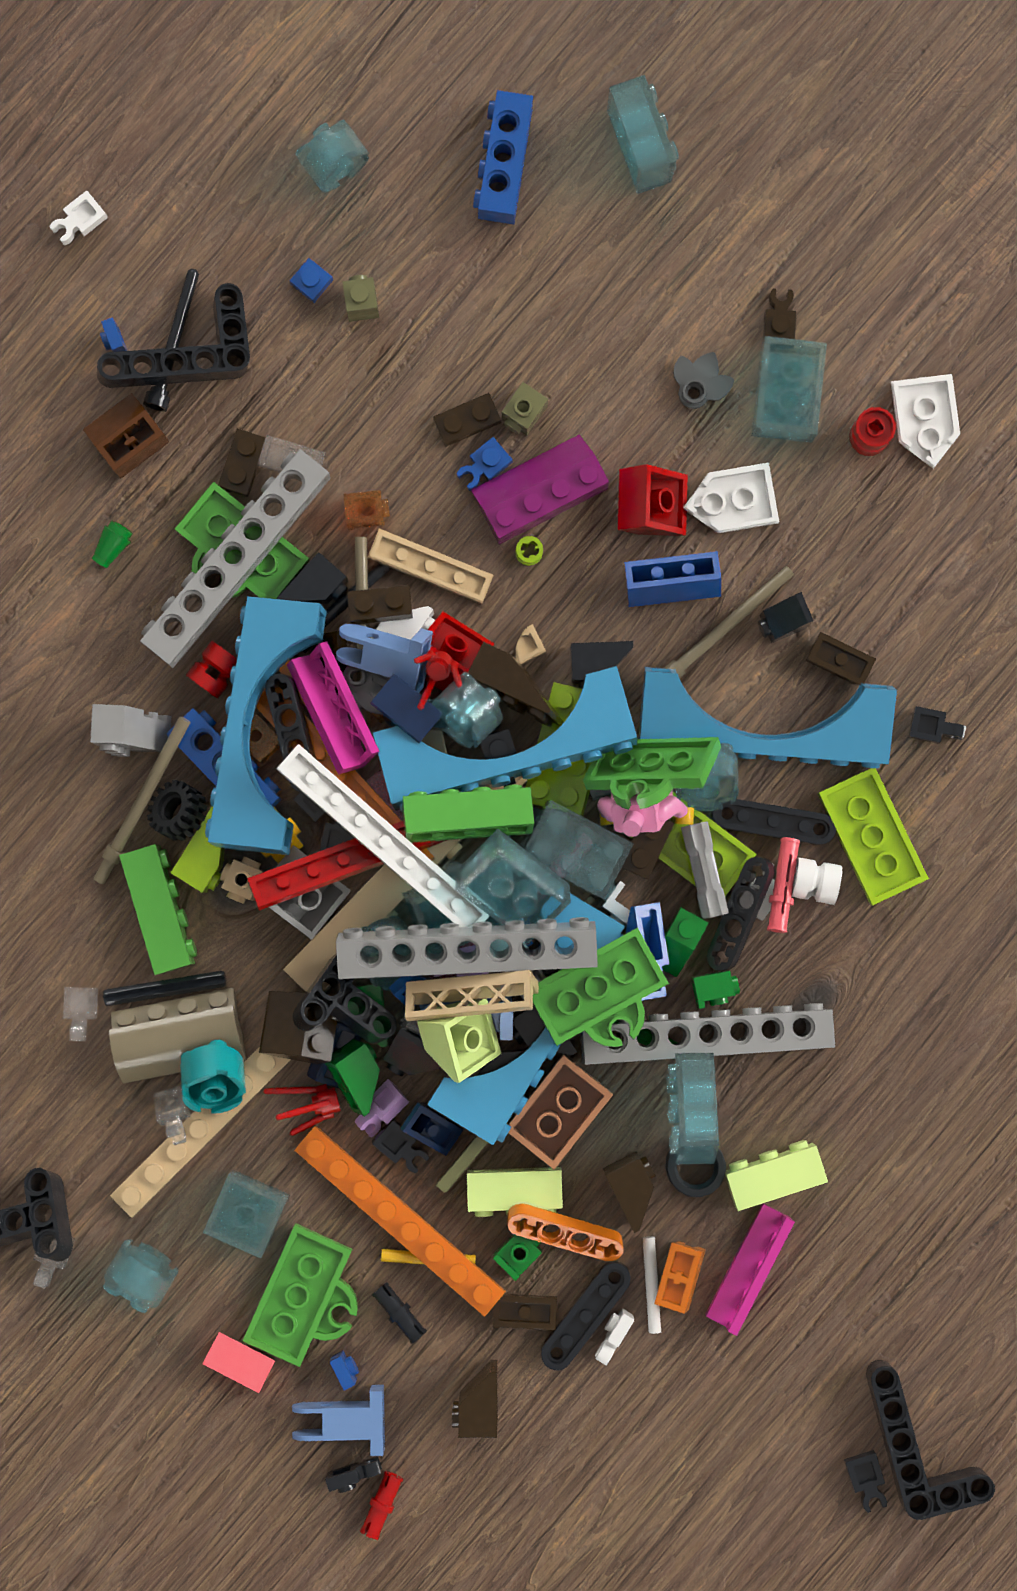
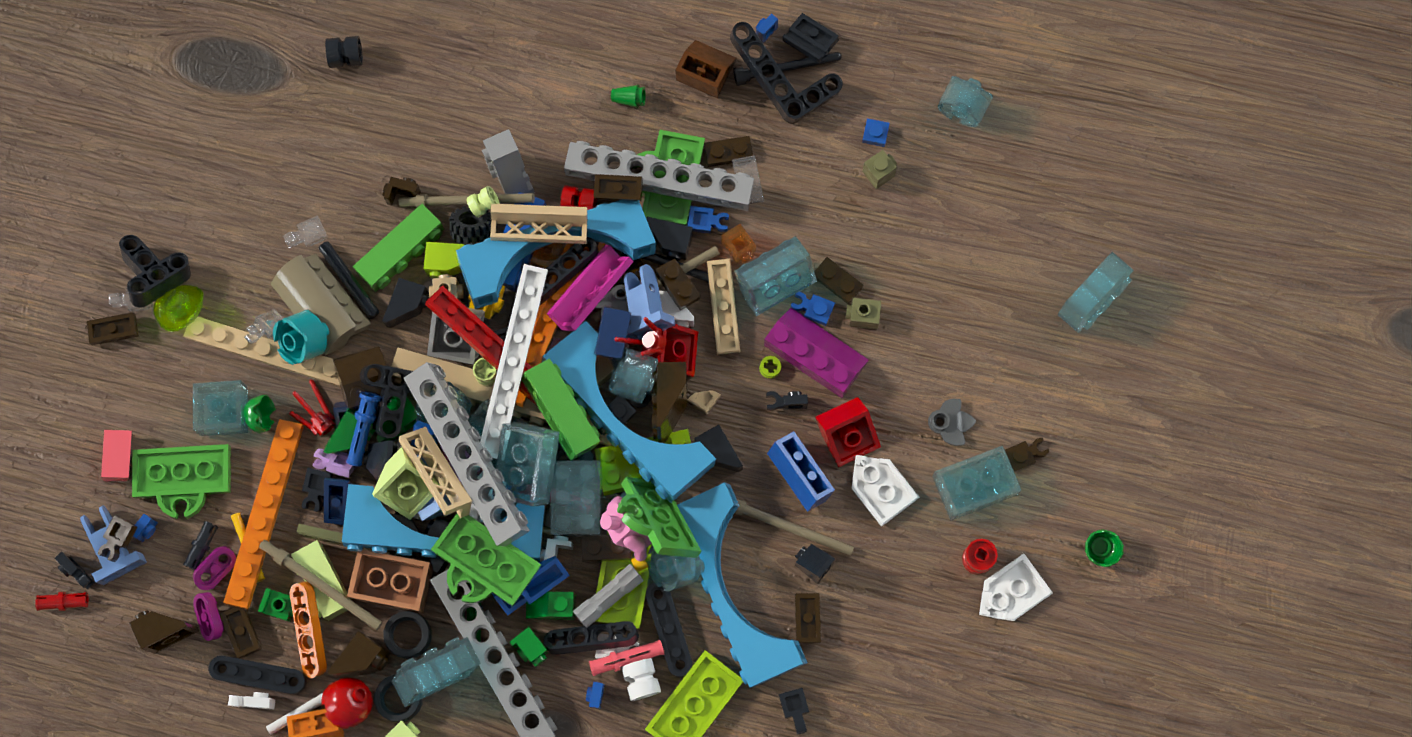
camera: 65 degrees right, 10 degrees down
(77, 1298) = (112, 328): none -> dark brown plate
(84, 864) = (405, 187): none -> dark brown bracket
(94, 1206) = (178, 307): none -> clear neon green hat
(139, 1275) = (145, 359): clear light blue brick -> none
(154, 292) = (810, 38): none -> black plate
(159, 781) = (482, 202): none -> yellowish green wheel
(218, 721) = (538, 215): none -> tan fence
(228, 612) = (618, 187): none -> dark brown plate
(230, 933) = (405, 302): none -> black slope
(277, 1173) = (258, 412): none -> green hair
(312, 535) = (703, 220): none -> blue plate
(343, 1403) = (118, 535): none -> plate
(353, 1046) = (364, 417): none -> blue pin
(365, 880) = (484, 368): none -> yellowish green wheel
(429, 485) = (775, 275): none -> clear light blue brick
(436, 1306) = (216, 569): none -> magenta plate
(467, 1223) = (283, 558): none -> dark tan bar
(488, 1341) = (208, 616): none -> magenta plate
(515, 110) = (998, 230): blue brick -> none
(583, 543) = (793, 400): none -> black plate
(651, 1121) = (392, 624): none -> black tyre
(673, 1226) = (347, 702): none -> red cylinder
(806, 941) = (595, 695): none -> blue plate
(933, 289) = (1104, 548): none -> green hair

